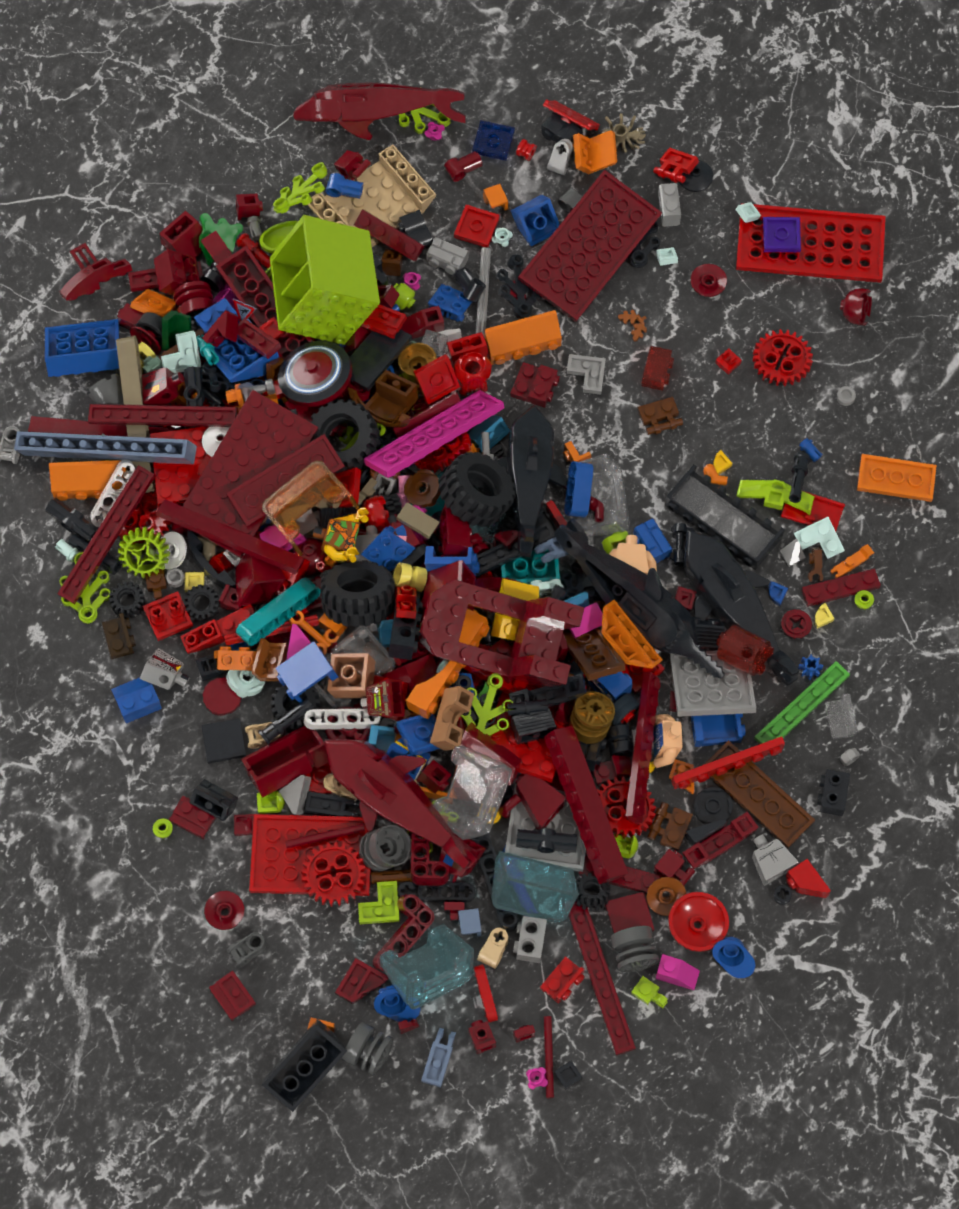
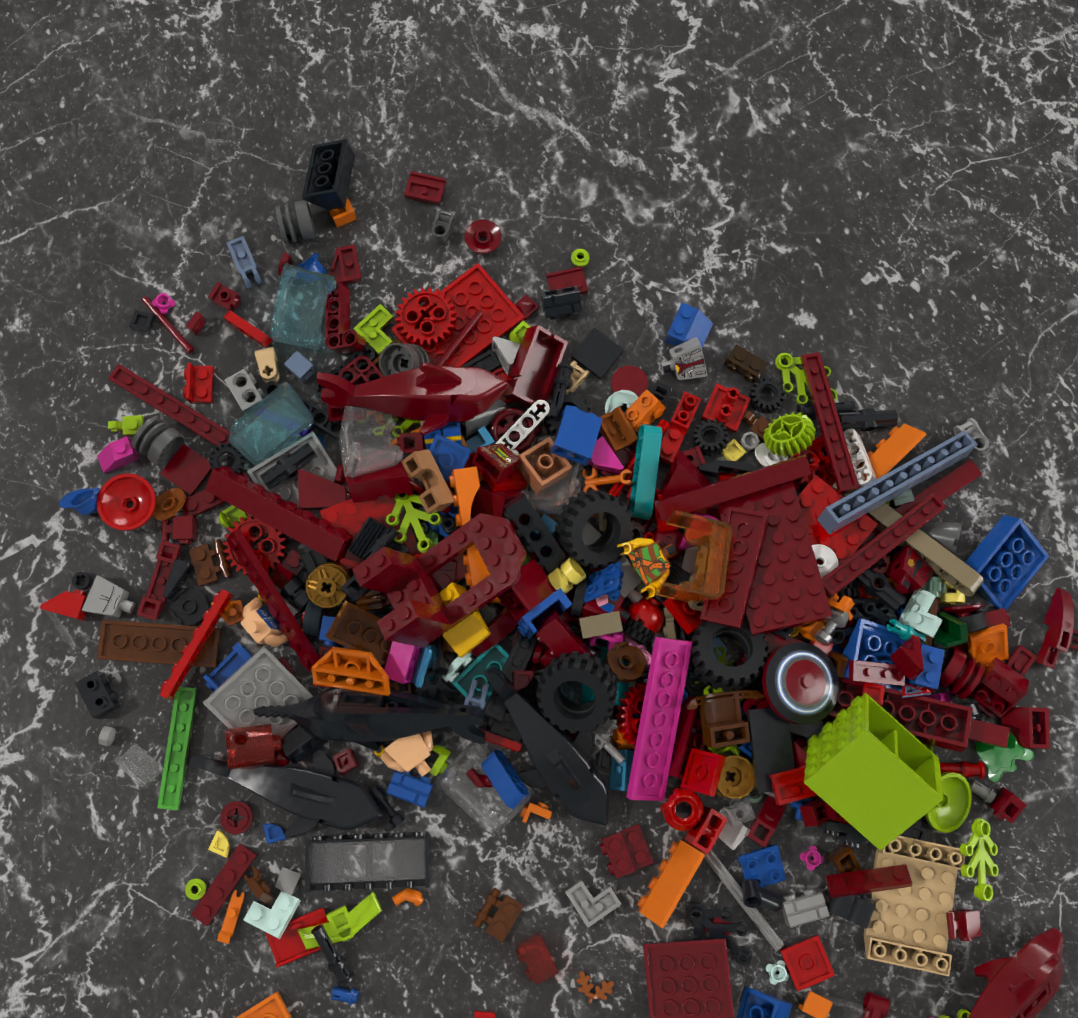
camera: 135 degrees right, 10 degrees up
(66, 550) = (847, 394): light aqua pin -> none
(338, 186) = (952, 892): blue piece -> none
(406, 296) = (805, 836): lime head -> none
(406, 602) = (548, 547): red slope -> none
(454, 907) = (320, 366): dark red tile -> none
(721, 462) = (413, 915): yellow tile -> none
(810, 661) = (188, 787): blue gear -> none

